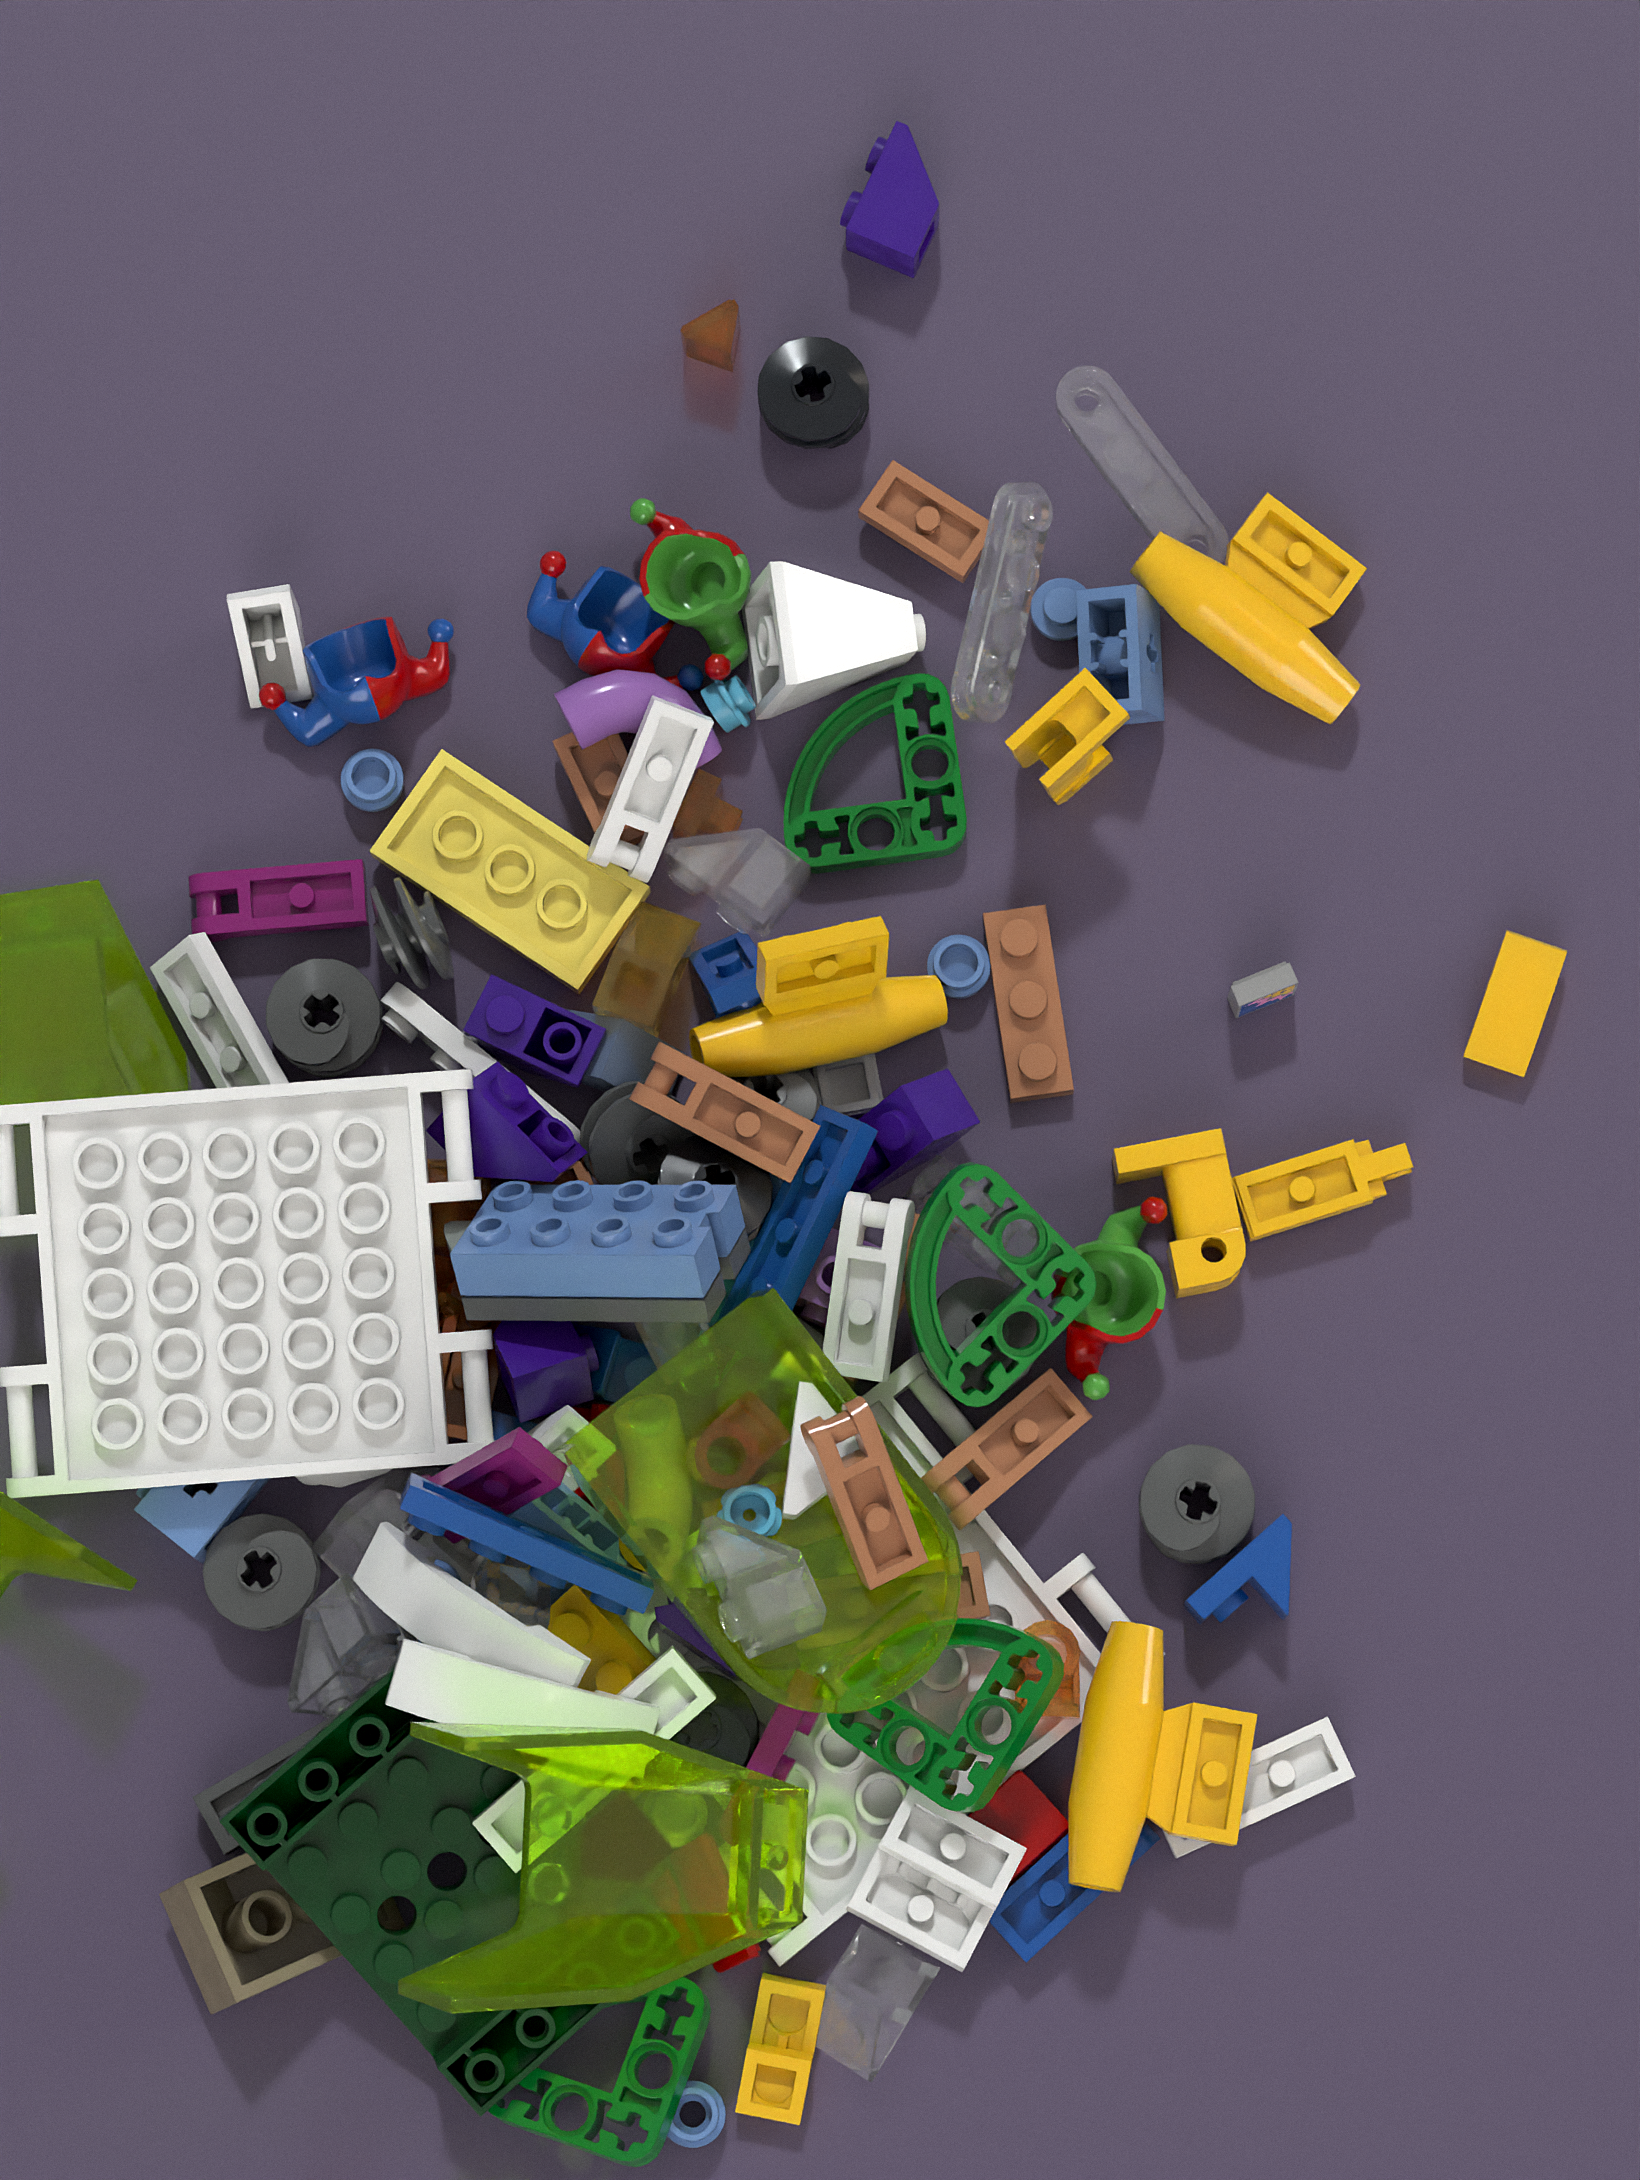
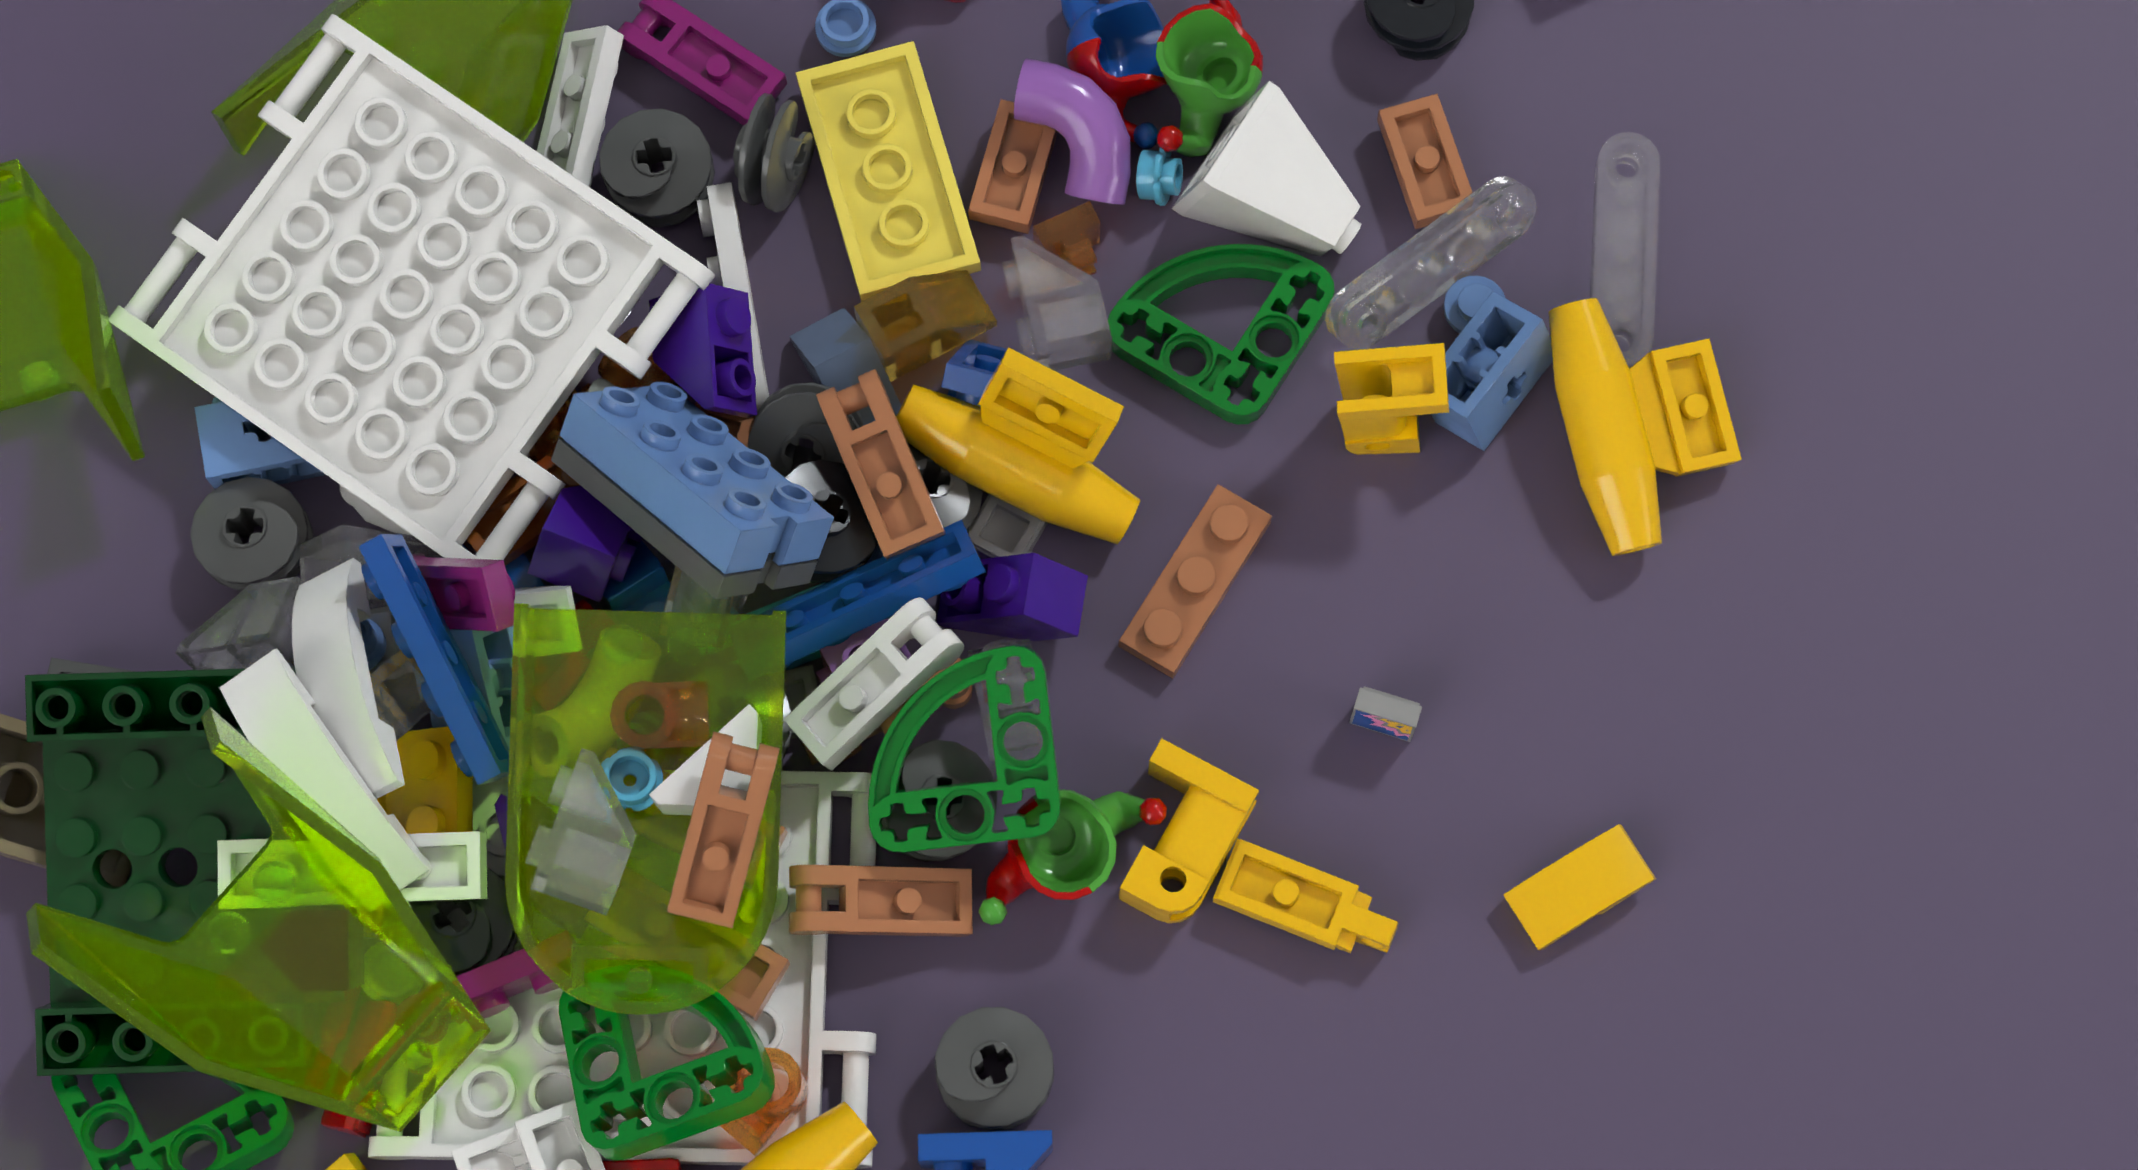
camera: 35 degrees right, 5 degrees down
(533, 1033) = (795, 295): dark purple slope -> none
(651, 787) = (1040, 182): white plate -> none
(960, 965) = (1166, 510): medium blue plate -> none

